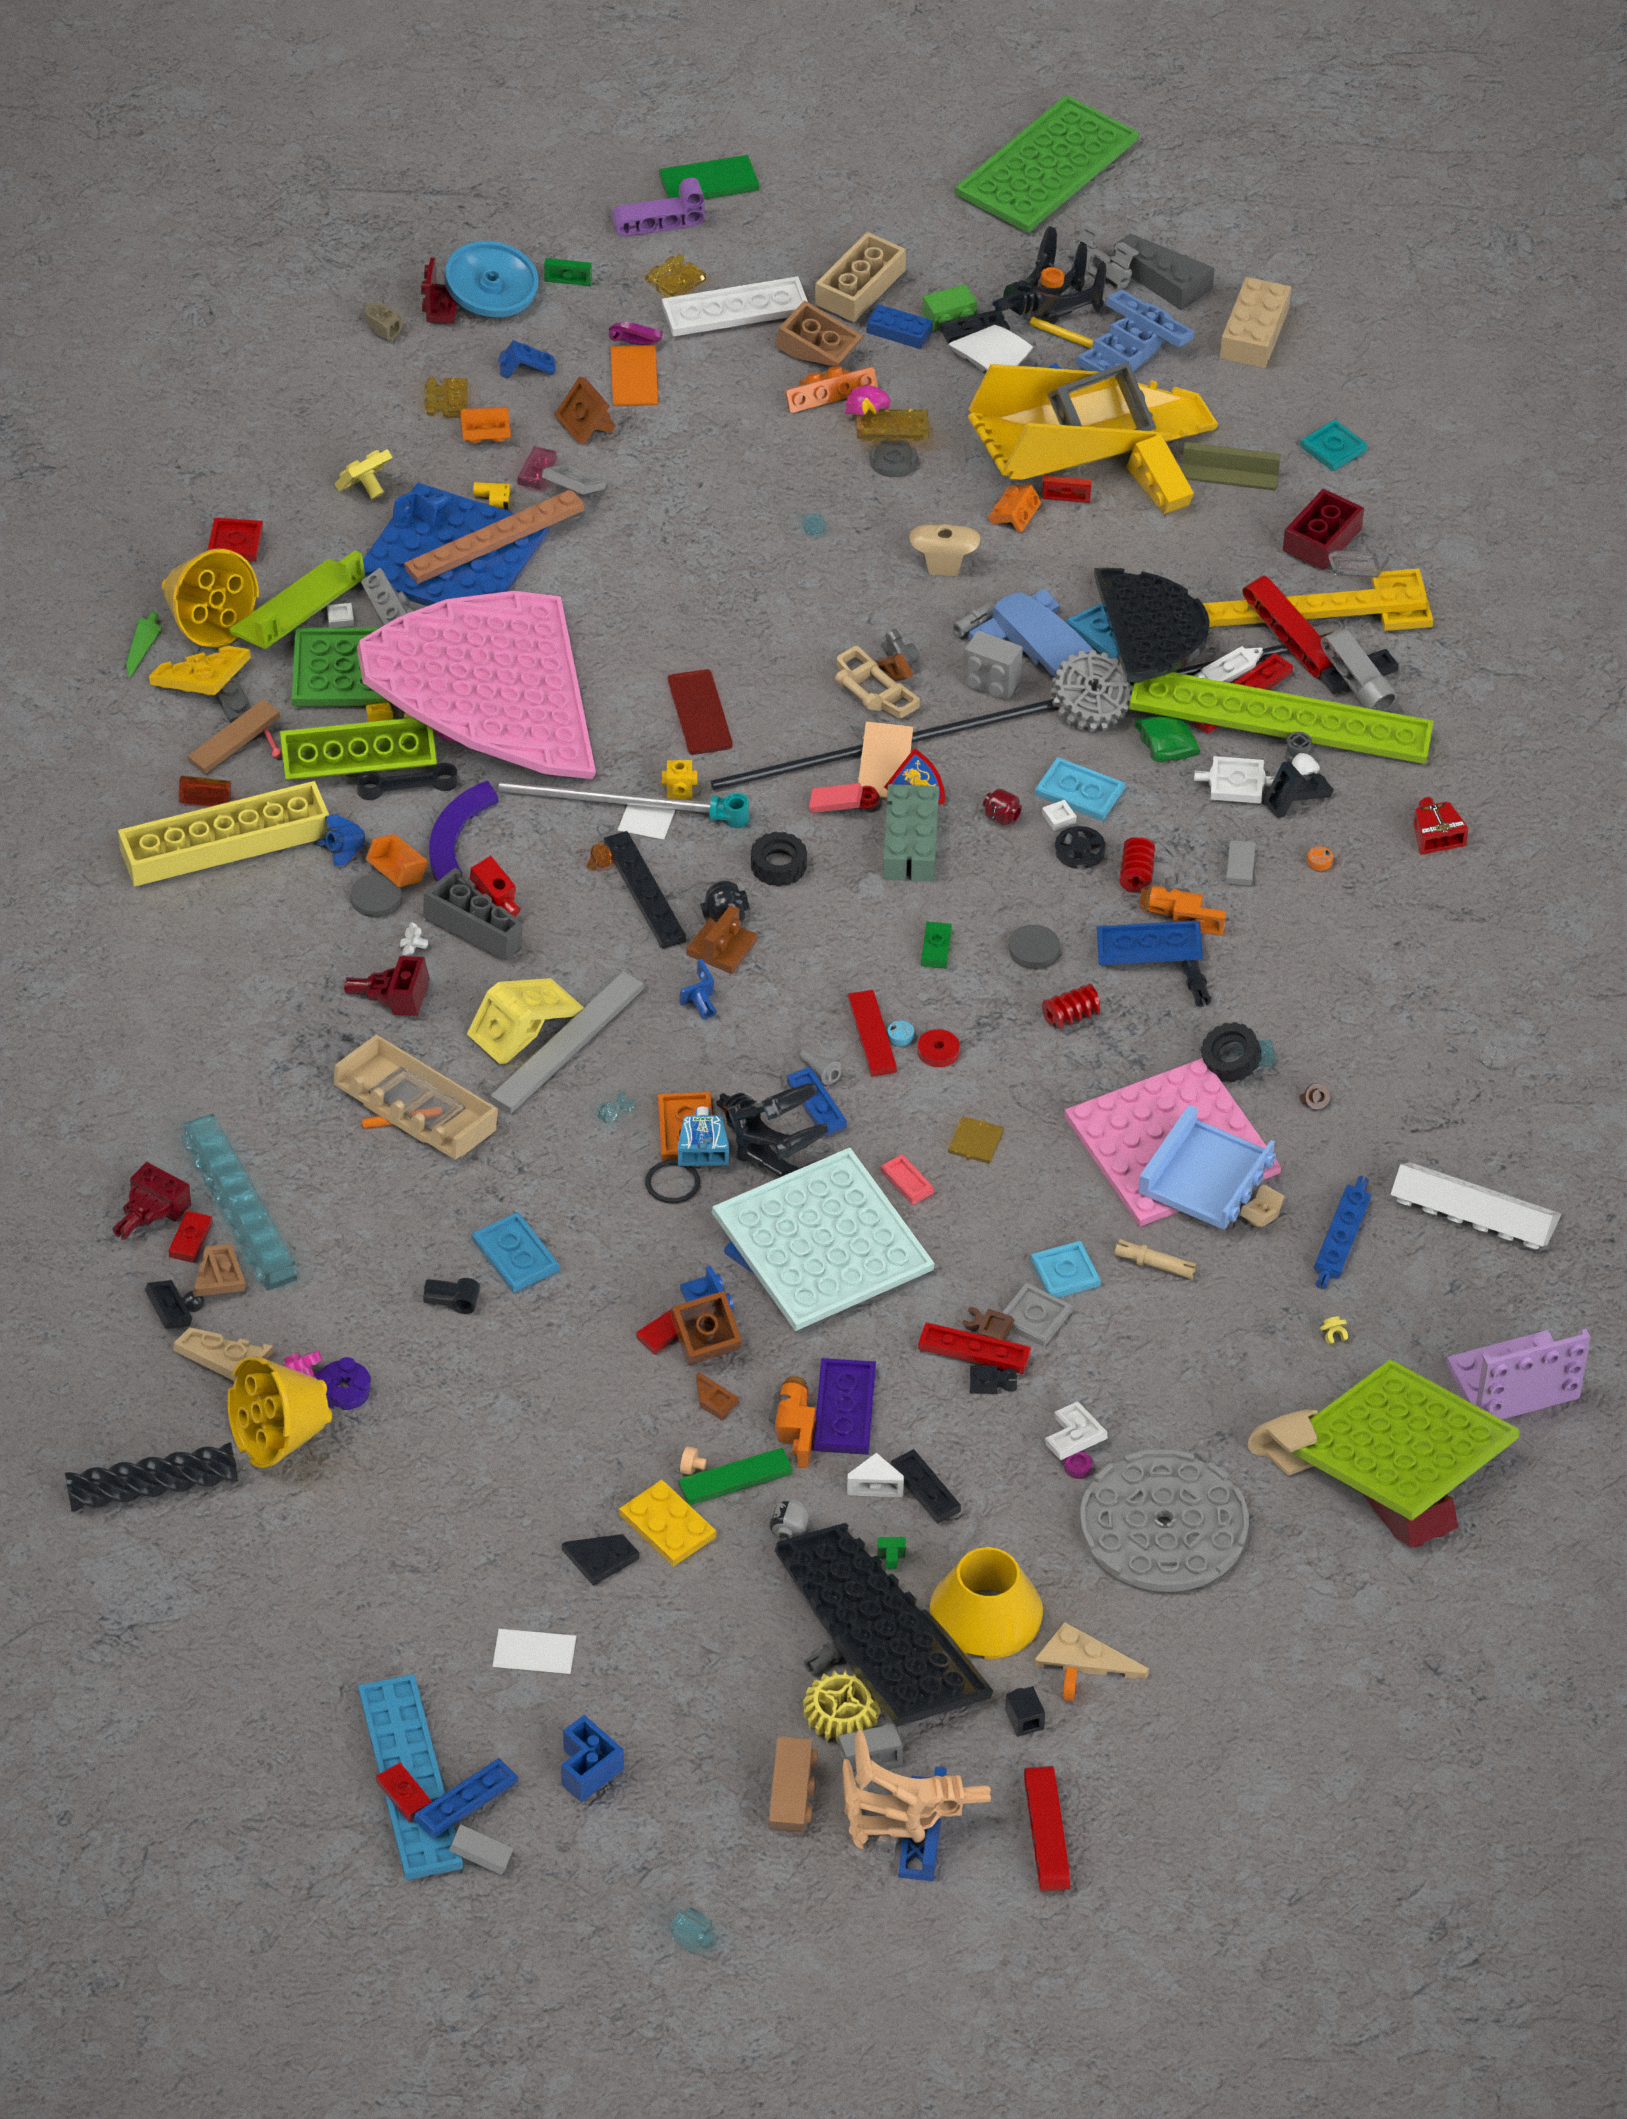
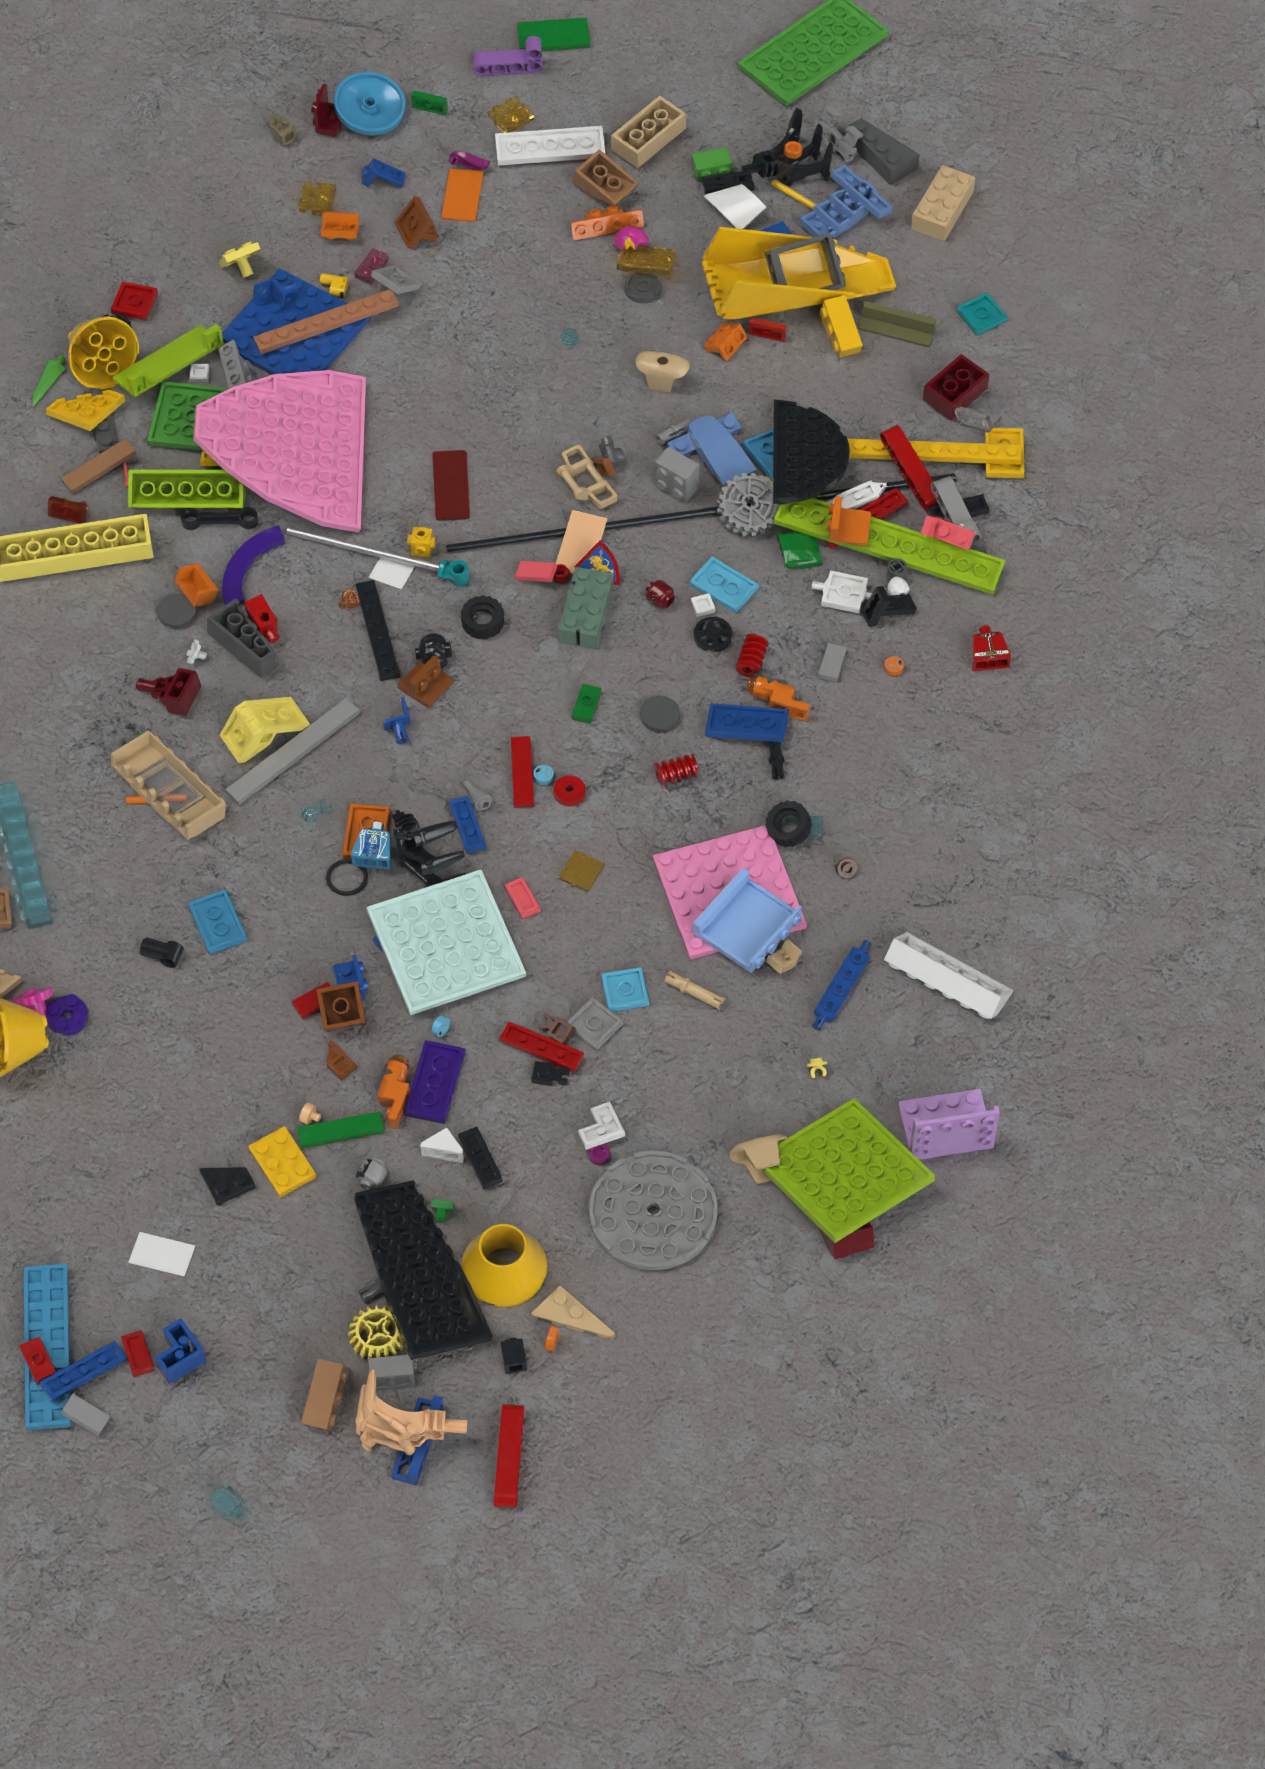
camera: 10 degrees right, 10 degrees up
(344, 838) = (161, 562): blue brick -> none
(531, 1771) = (137, 1353): none -> red tile
(838, 1338) = (440, 1026): none -> medium azure tile
(899, 326) = (670, 176): blue piece -> none
(1226, 697) = (848, 525): none -> orange bracket
(1356, 693) = (948, 531): none -> coral bracket

